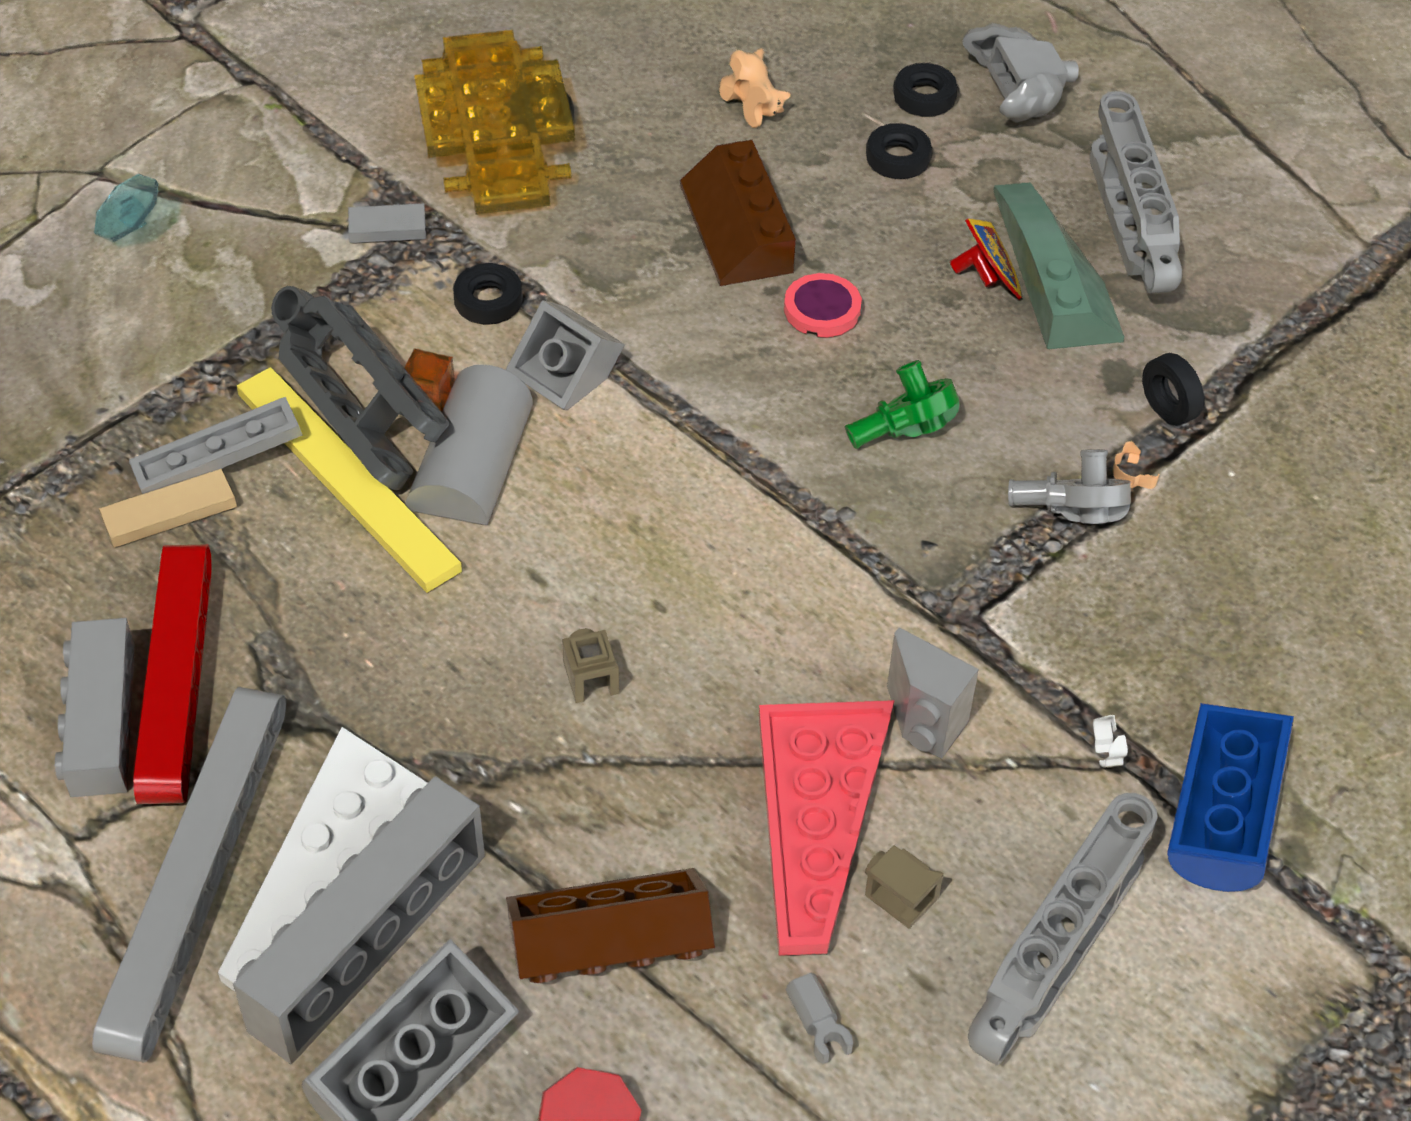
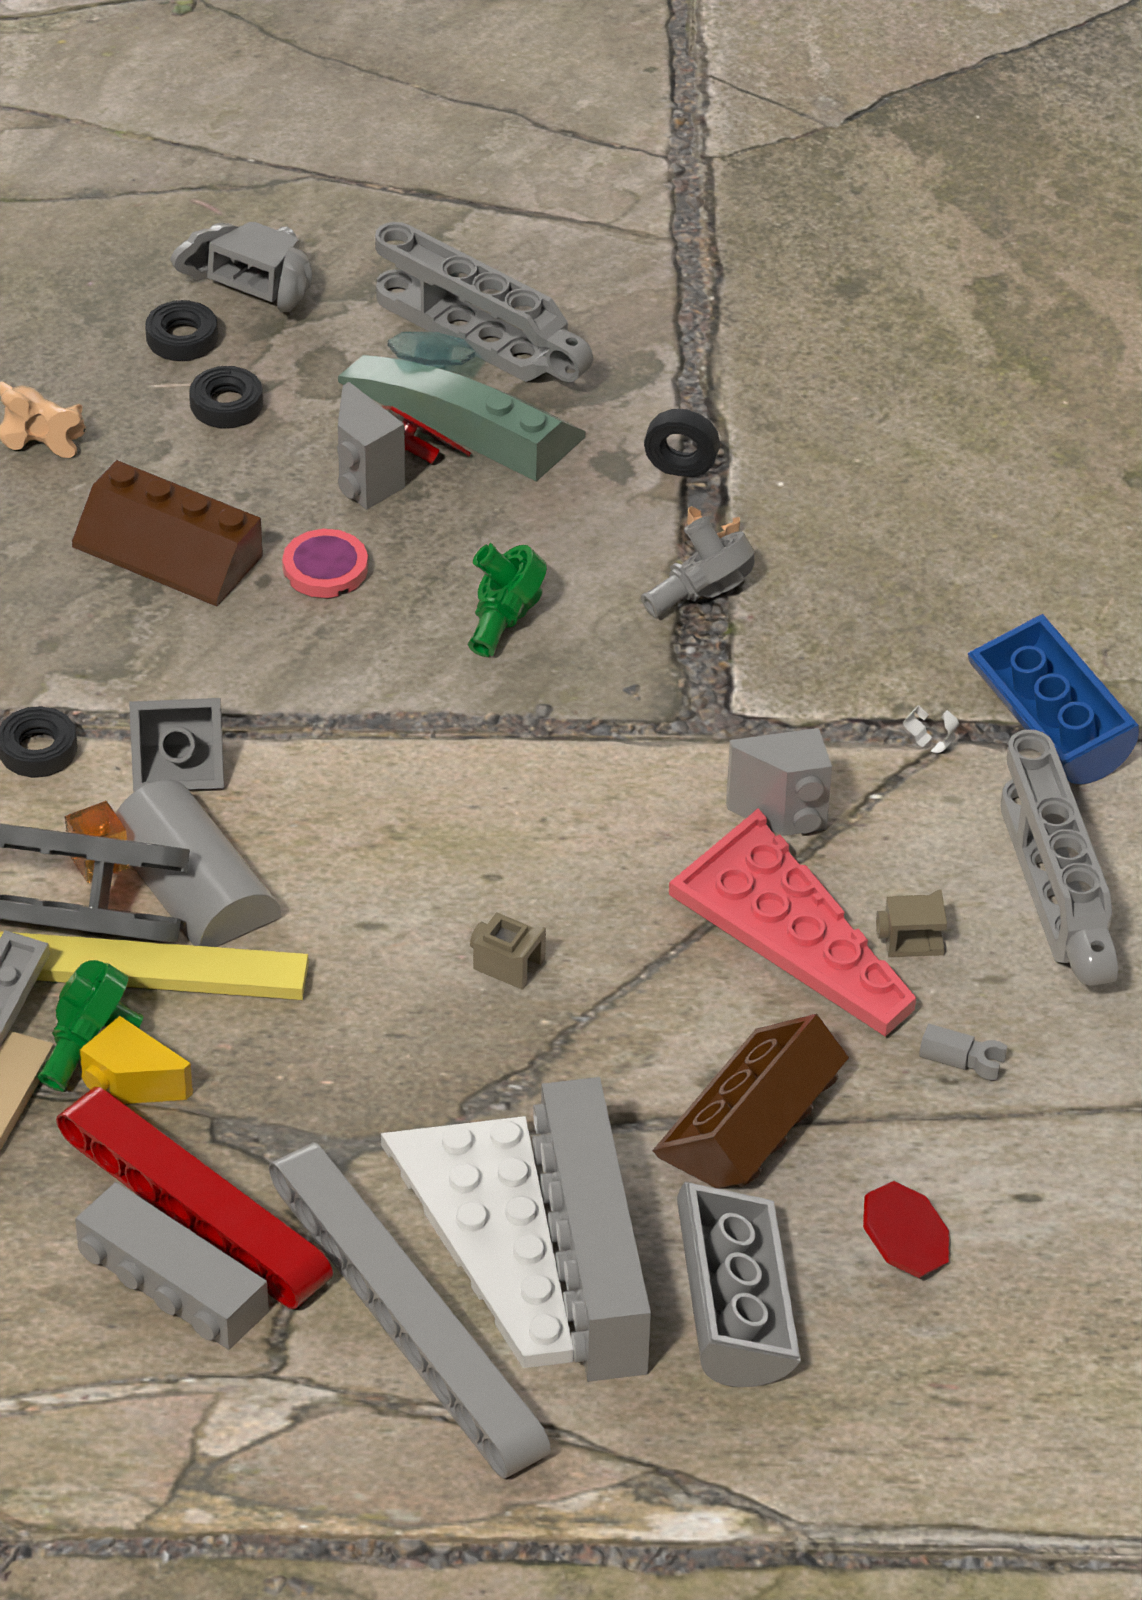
camera: 45 degrees left, 5 degrees down
(253, 549) = (134, 1066): none -> yellow slope
(265, 486) = (83, 1008): none -> green pin
(929, 241) = (369, 449): none -> light grey slope
(1074, 206) = (431, 348): none -> clear light blue piece

